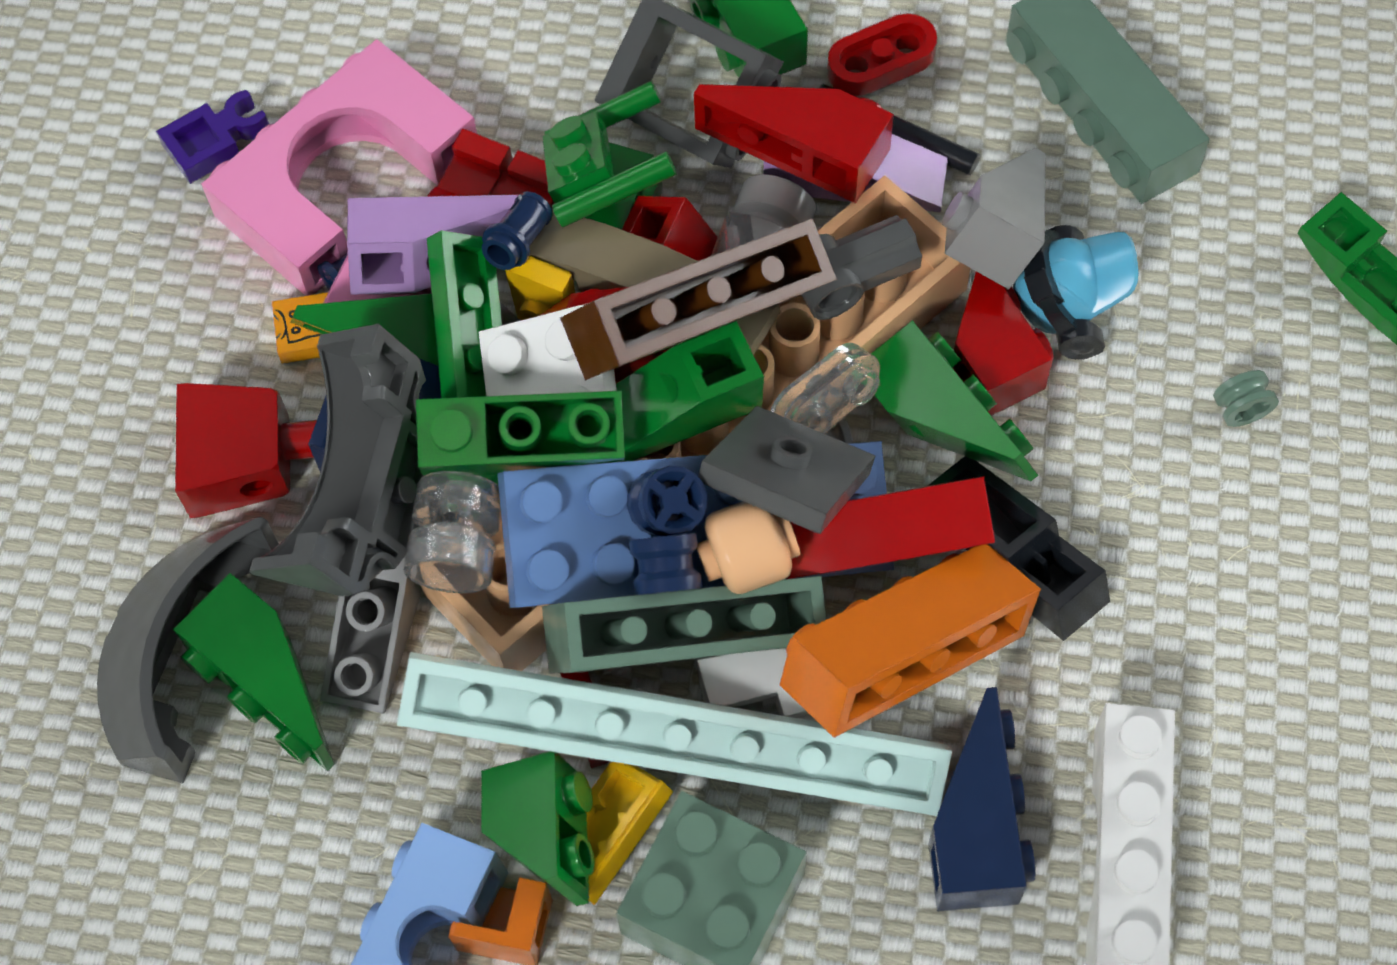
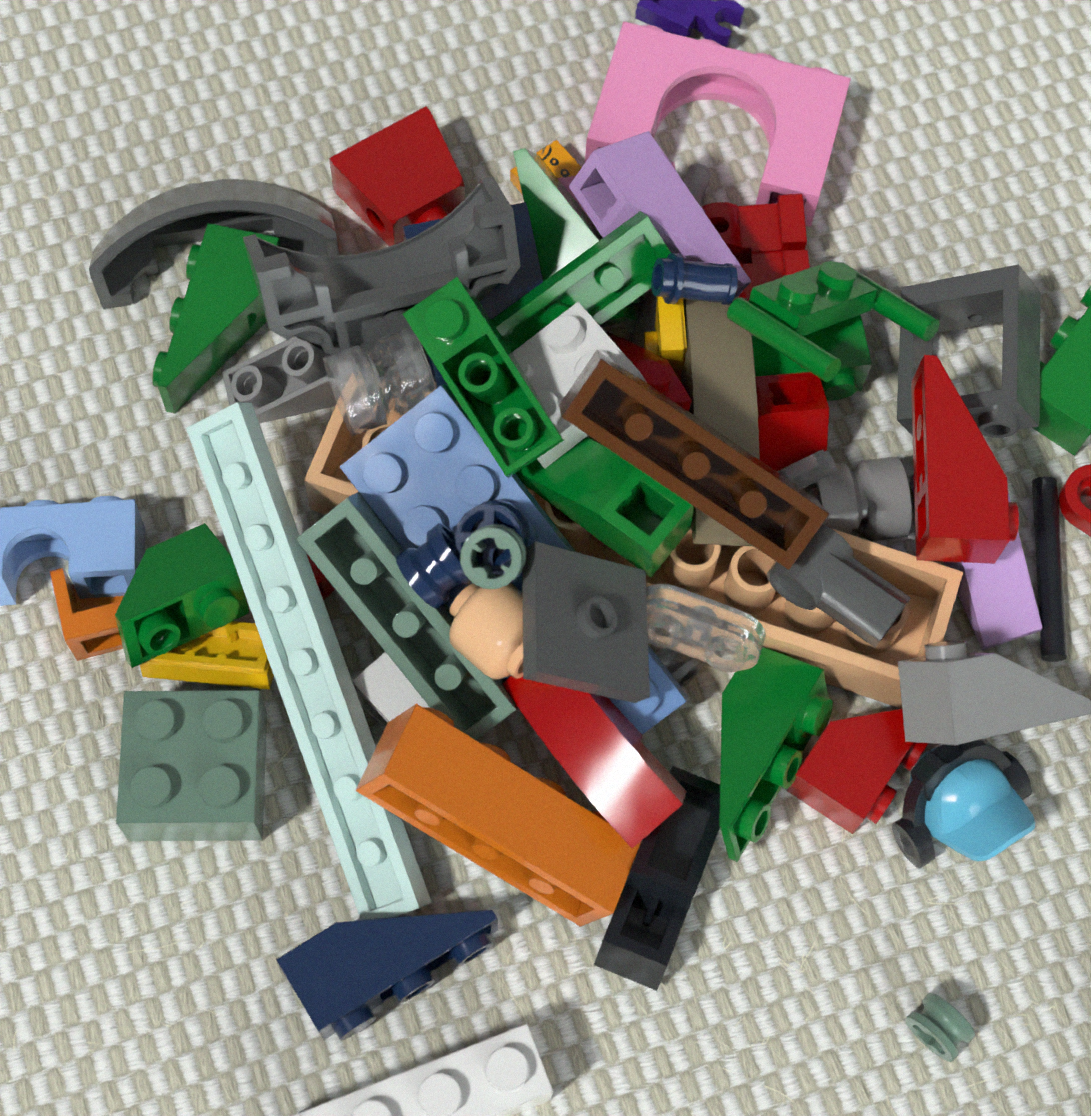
camera: 55 degrees right, 5 degrees up
(703, 521) = (482, 573): none -> sand green bush

